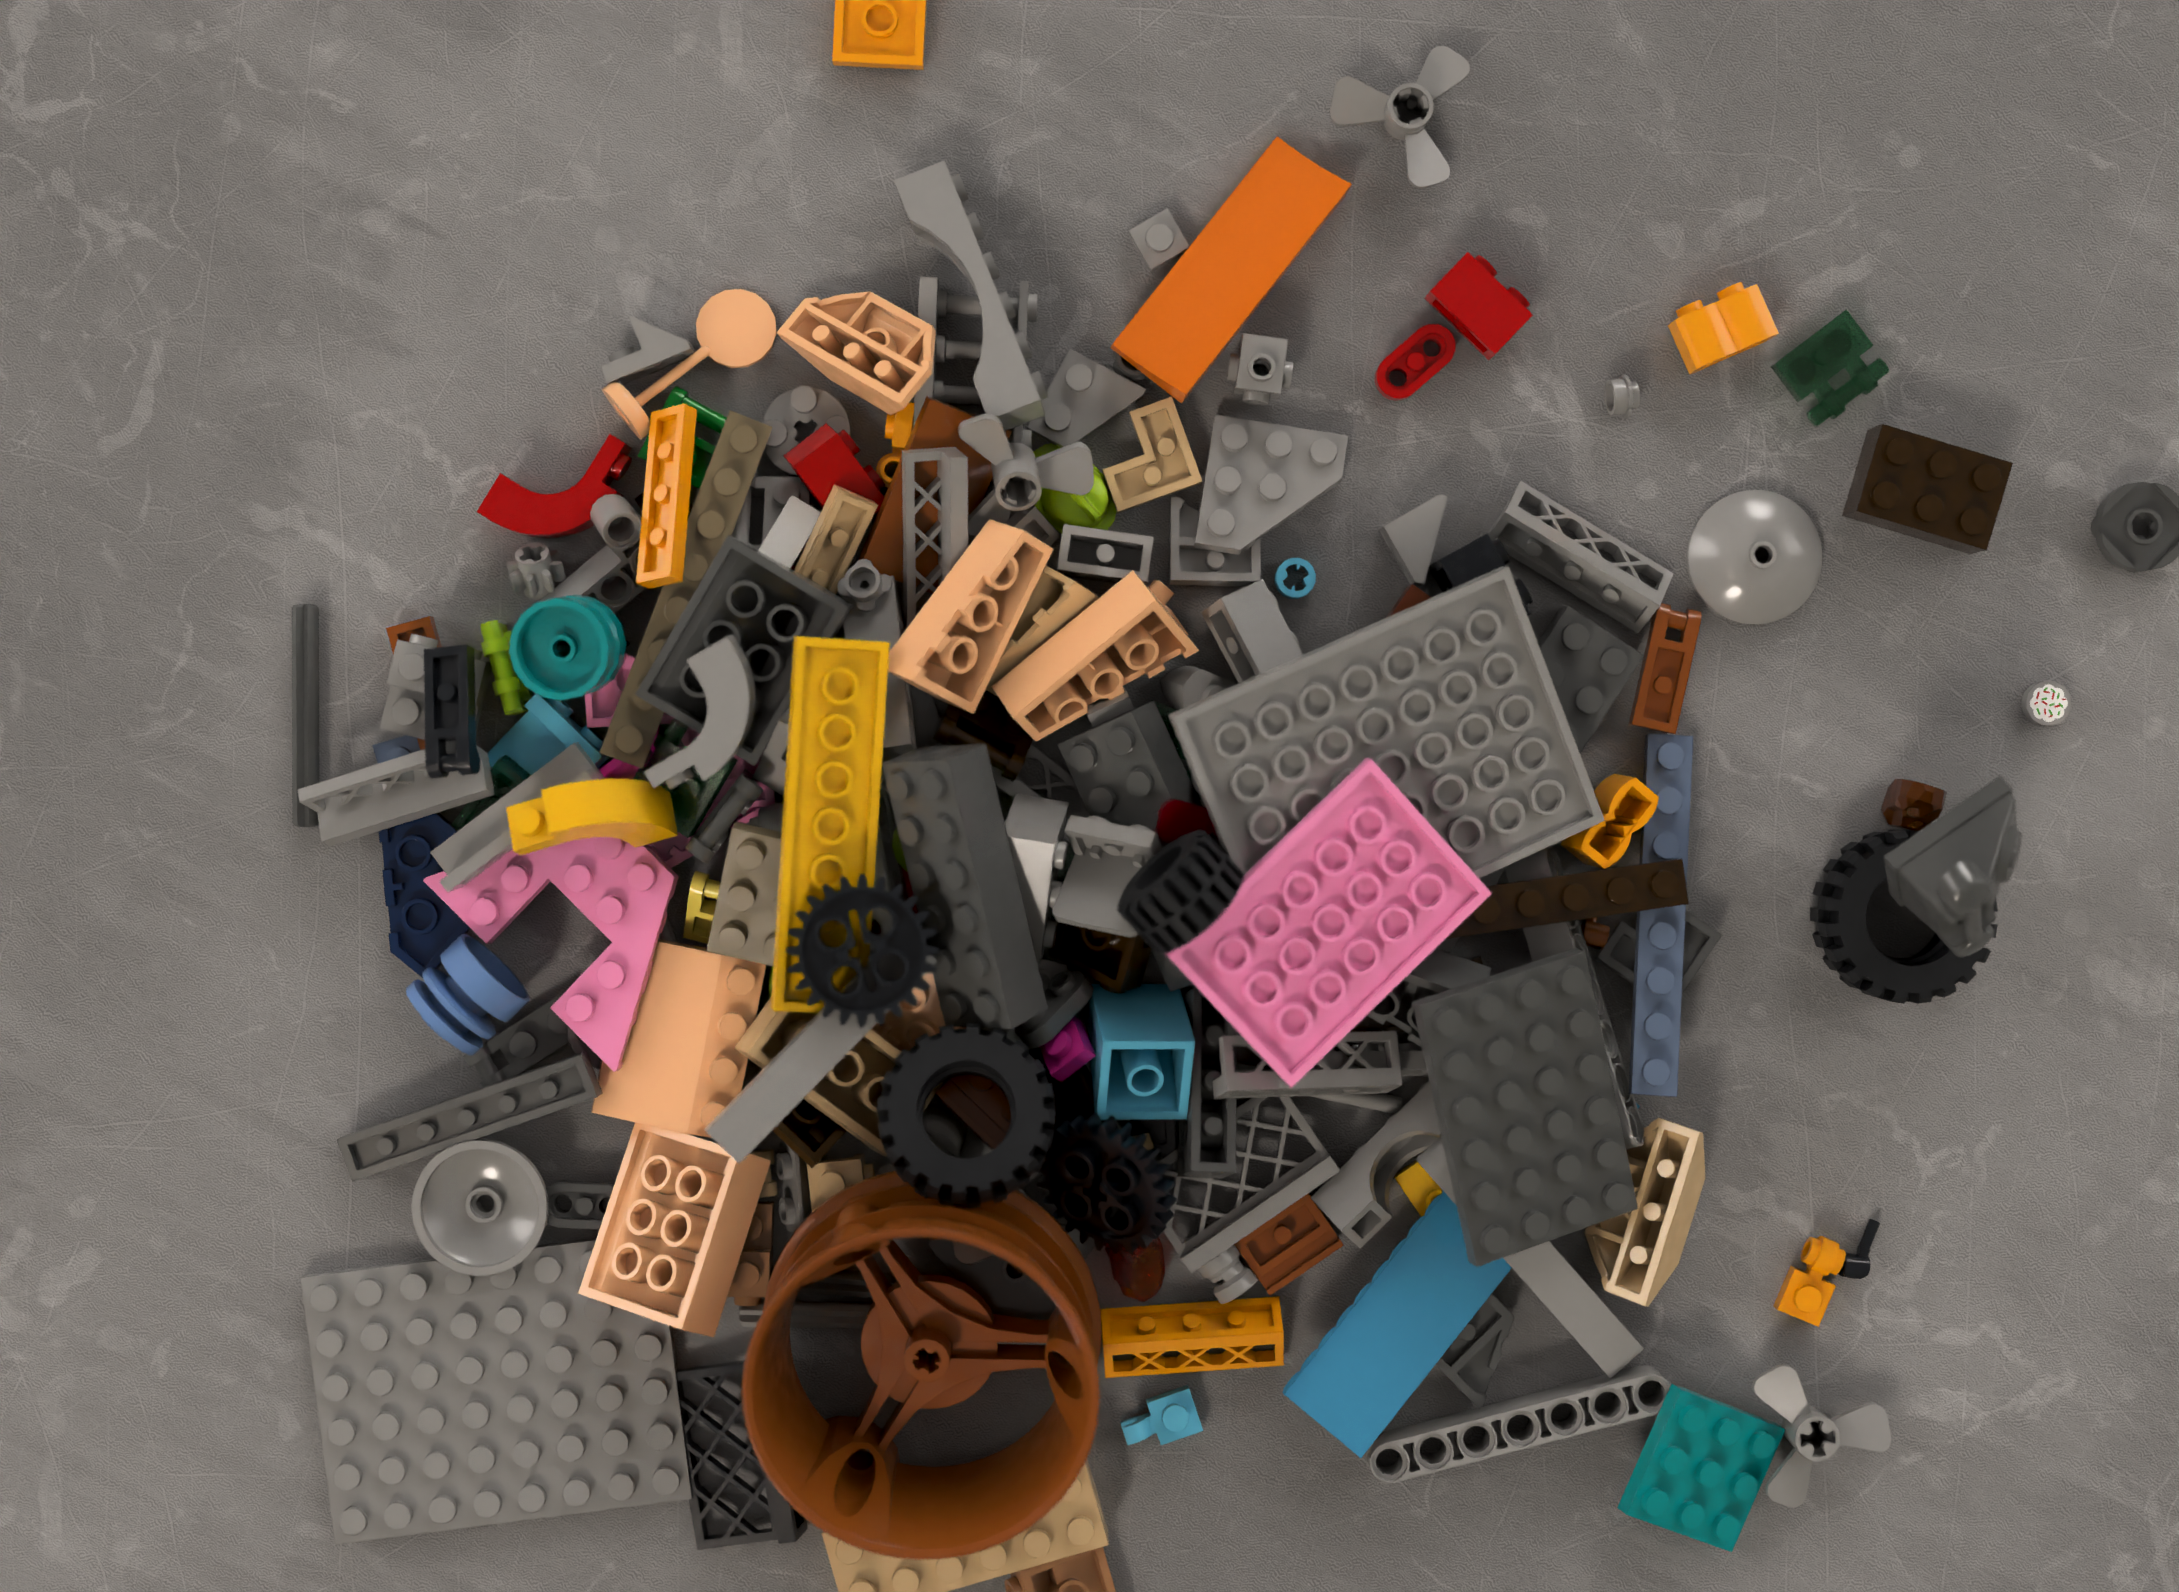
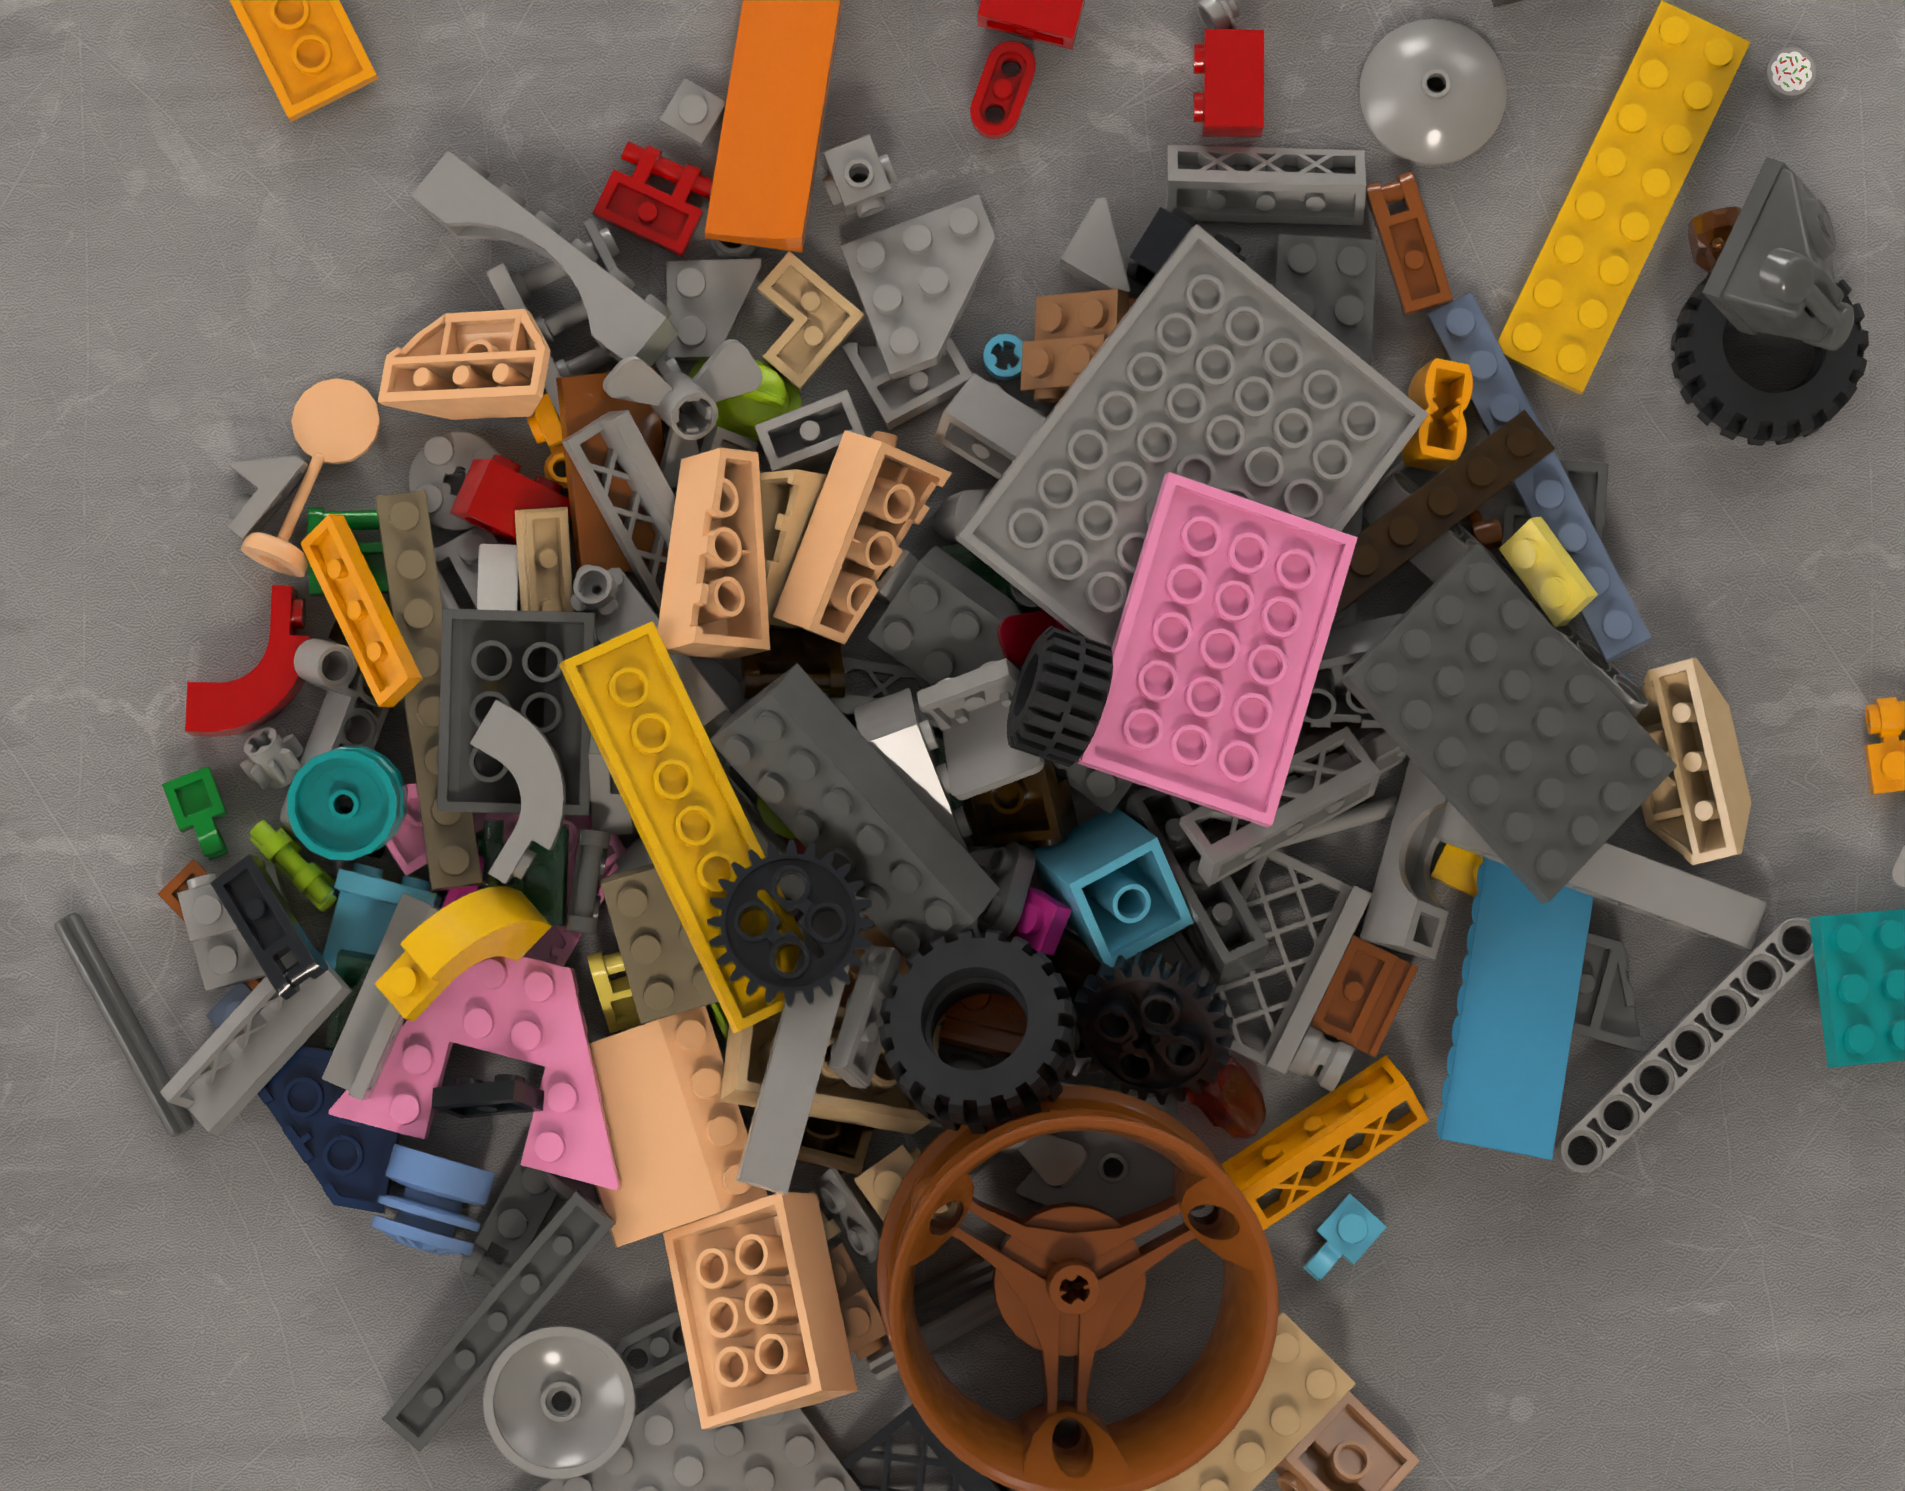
camera: 20 degrees left, 5 degrees down
(457, 573) = (196, 805): none -> green plate
(542, 932) = (478, 1099): none -> black plate
(867, 1068) = (858, 1042): none -> light grey hinge
(1078, 301) = (648, 211): none -> red plate
(1353, 596) = (1066, 339): none -> medium nougat plate
(1600, 460) = (1231, 83): none -> red brick
(1625, 997) = (1548, 571): none -> light yellow plate
(1855, 726) = (1621, 197): none -> yellow plate

